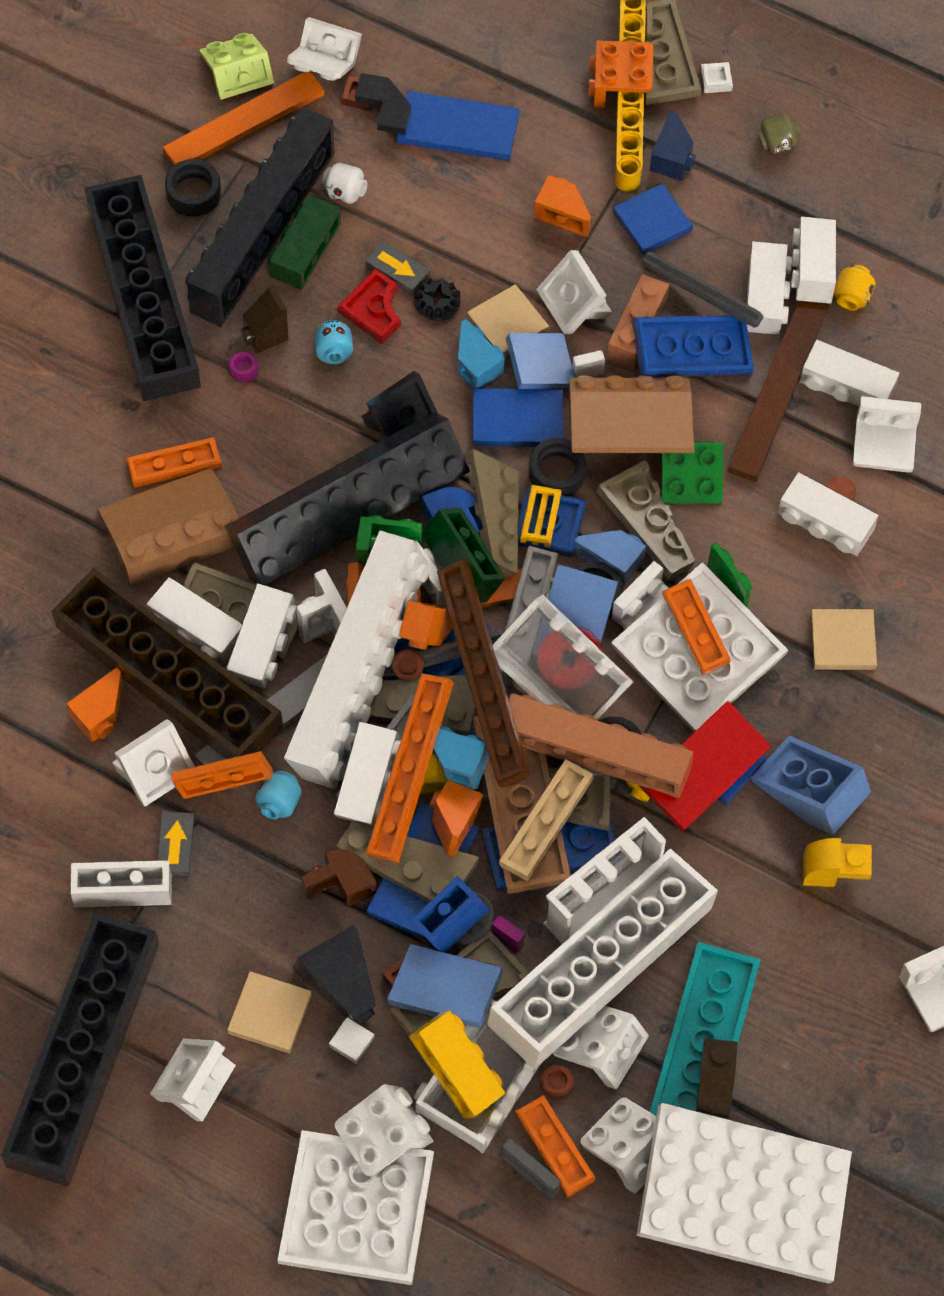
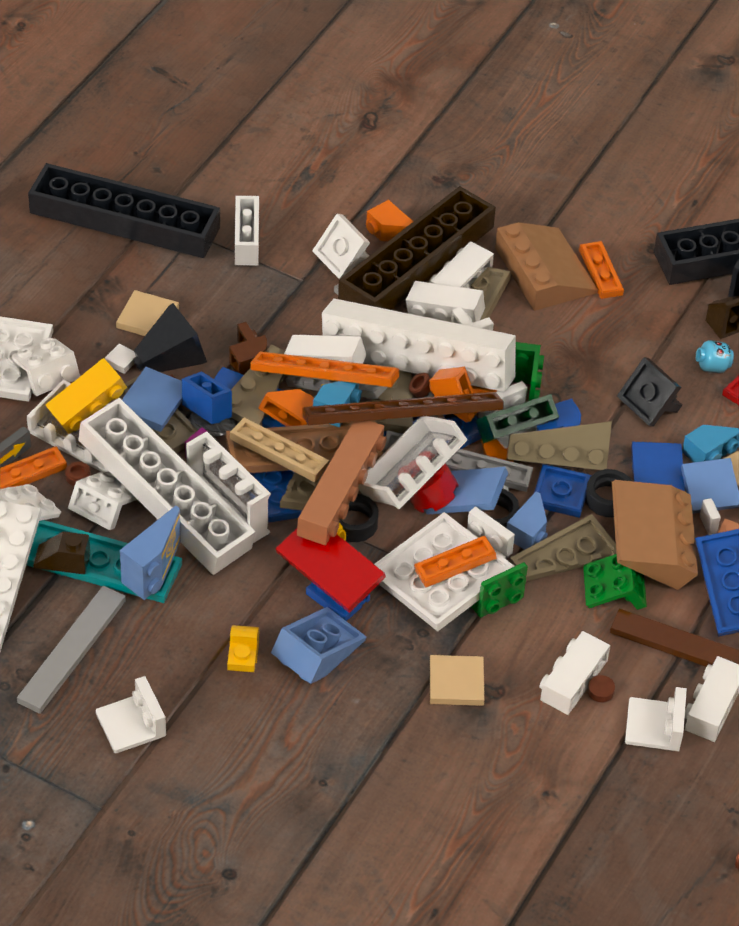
camera: 90 degrees right, 15 degrees down
(176, 841) = (282, 267): dark grey tile -> none
(194, 1077) = (96, 271): white bracket -> none
(222, 775) = (329, 279): orange tile -> none
(243, 366) = (690, 309): magenta tile -> none
(278, 795) = (312, 317): medium azure head -> none
(331, 504) = (568, 352): black brick -> none
(537, 538) = (562, 481): yellow tile -> none
(723, 960) = (150, 555): none -> medium blue slope
(839, 1066) = (71, 649): none -> light grey tile

